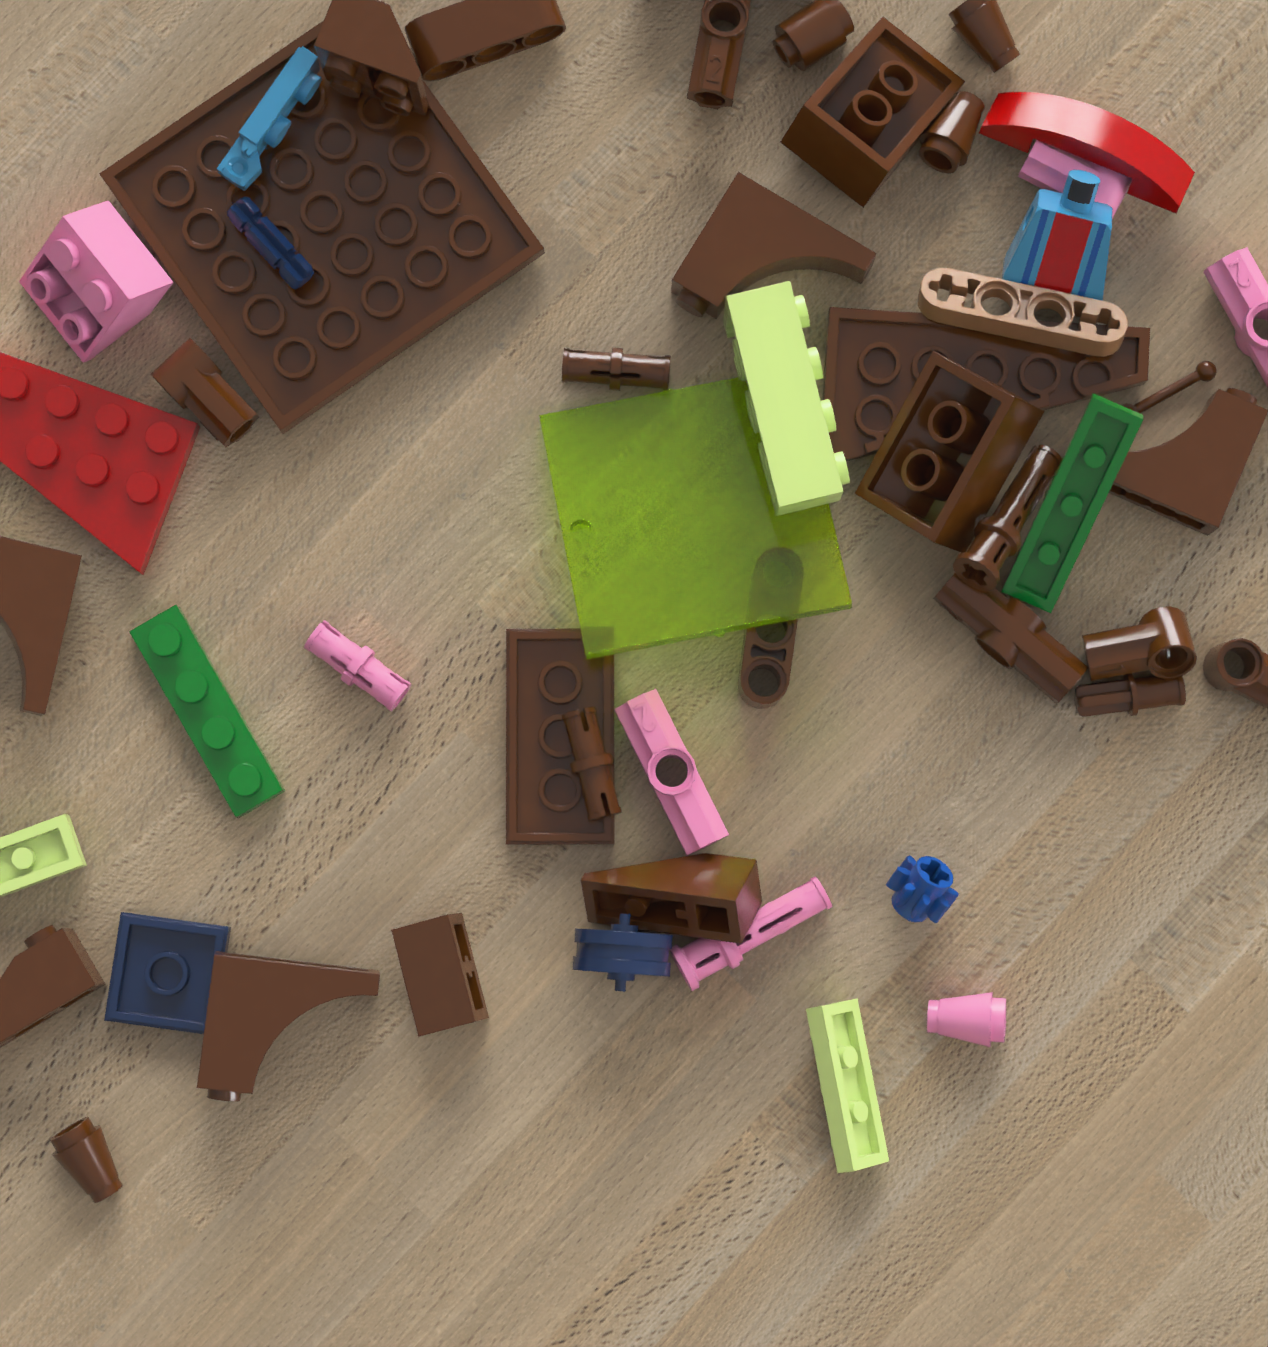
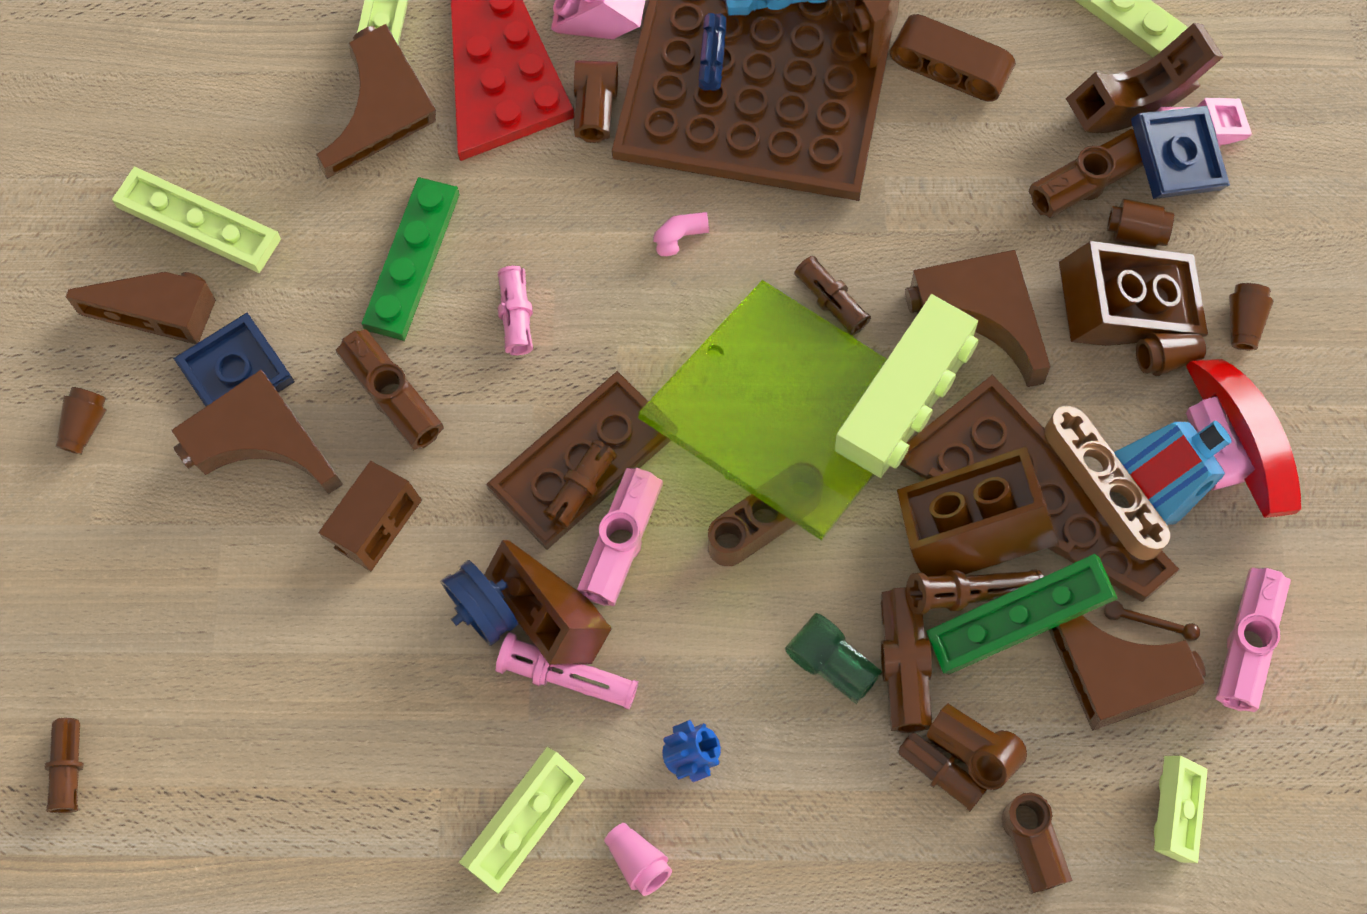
camera: 50 degrees right, 15 degrees down
(296, 845) = (404, 405): none -> reddish brown piece
(414, 446) = (677, 227): none -> bright pink arm
(939, 694) = (823, 650): none -> clear green piece

